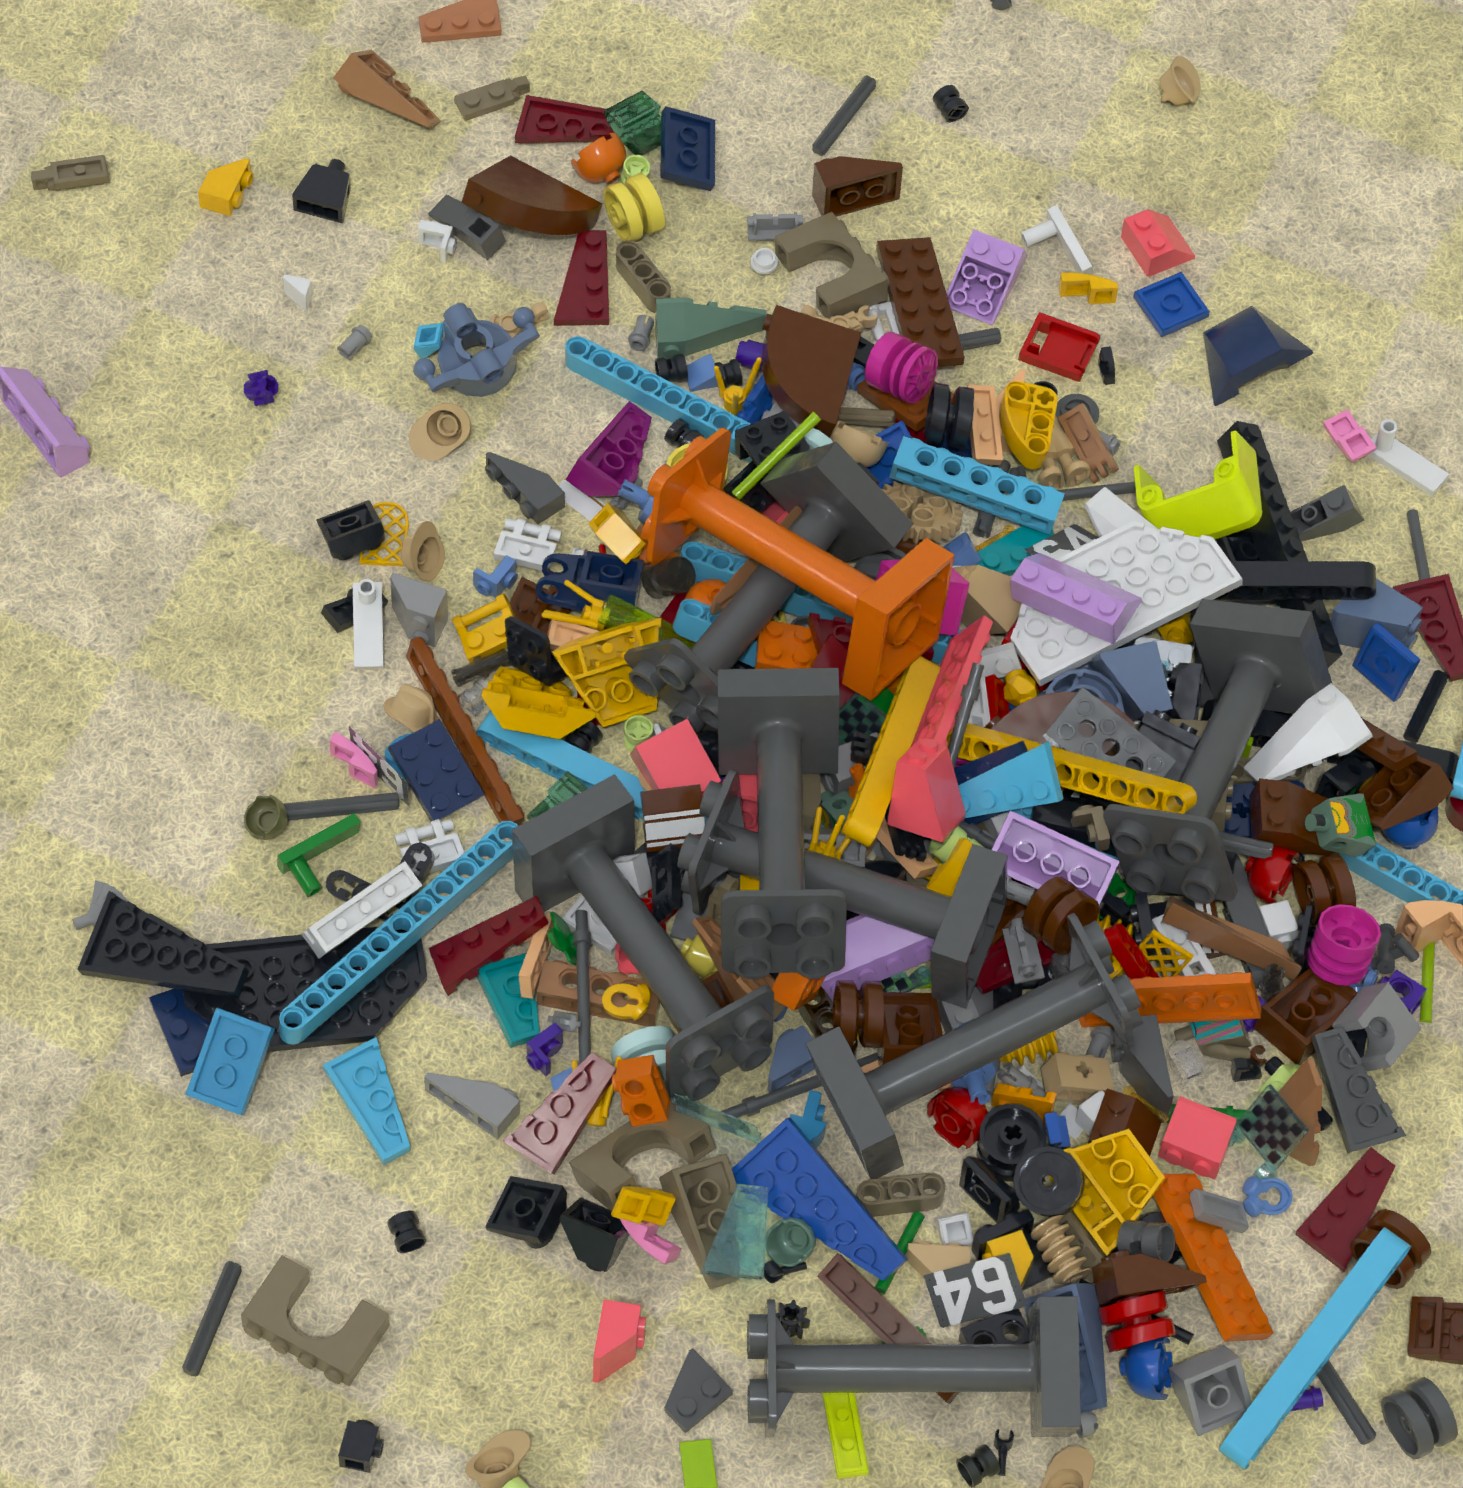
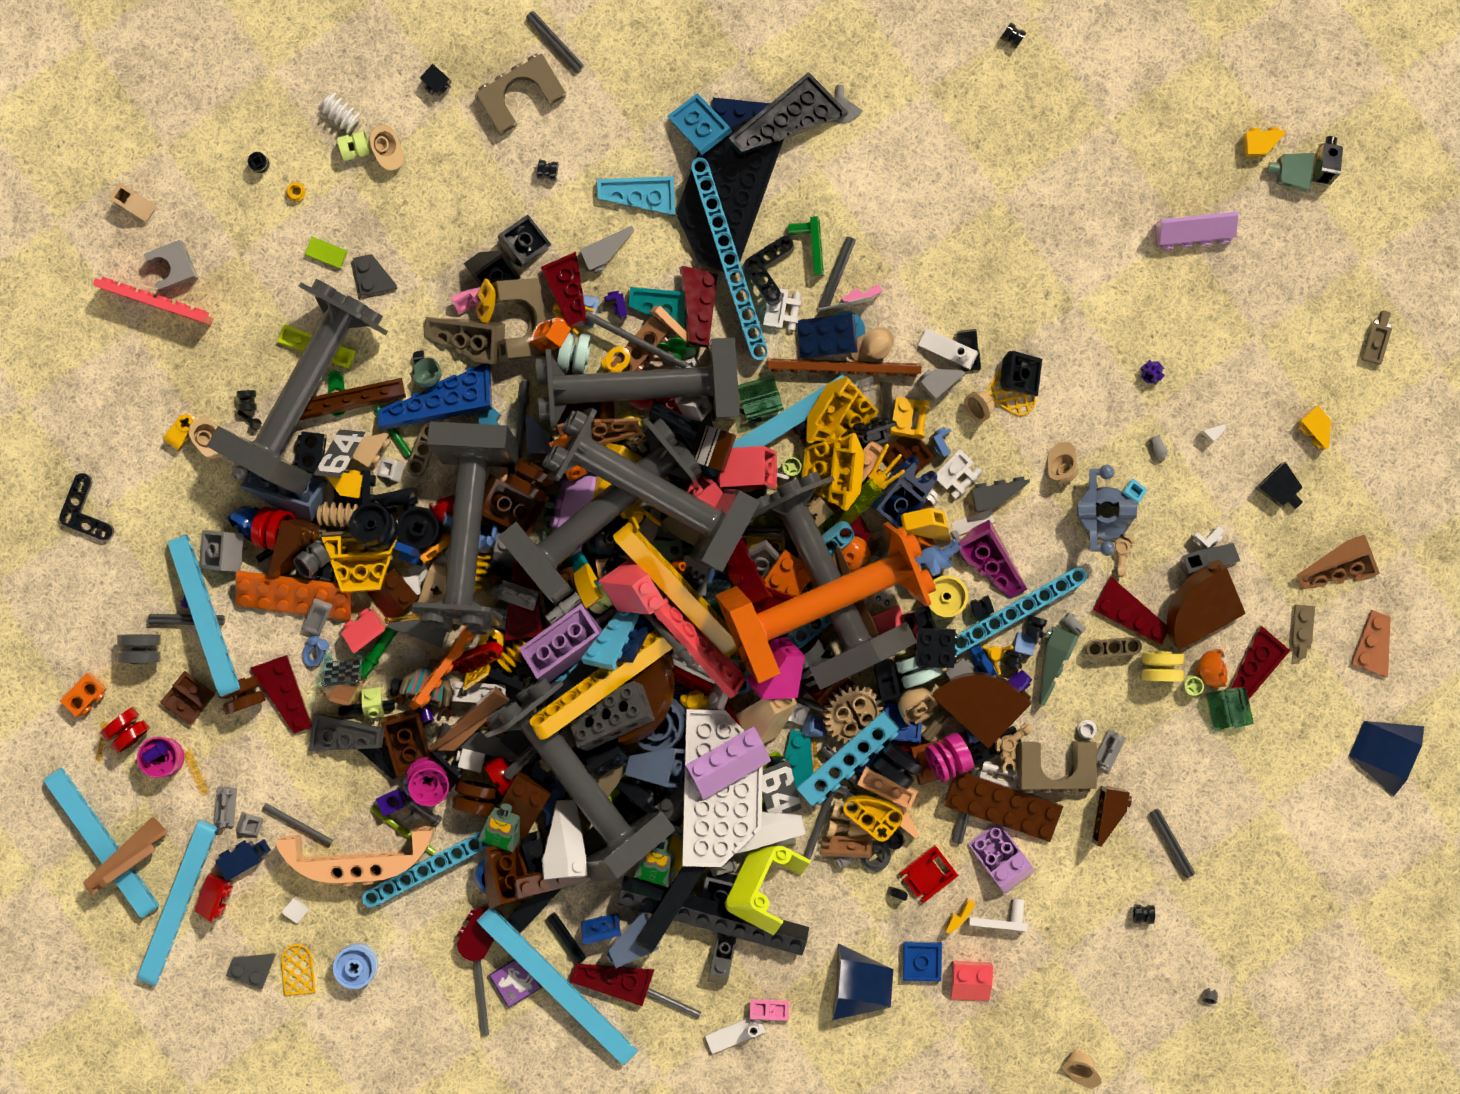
camera: 125 degrees right, 30 degrees up
(265, 817) = (849, 224): olive hair -> none
(361, 910) = (750, 241): white brick -> none
(565, 1020) = (625, 321): light grey axle -> none
(618, 1337) = (418, 246): coral slope -> none
(687, 148) = (1194, 728): dark blue plate -> none
(716, 1118) = (516, 370): clear light blue piece -> none
(741, 1236) = (443, 347): clear light blue wing -> none
(765, 466) = (919, 640): lime bar -> none
(793, 1312) = (379, 344): black gear -> none
(1048, 912) = (519, 623): reddish brown wheel -> none
(1095, 825) = (563, 676): dark tan bracket -> none
(1385, 1020) = (374, 772): light grey piece -> none

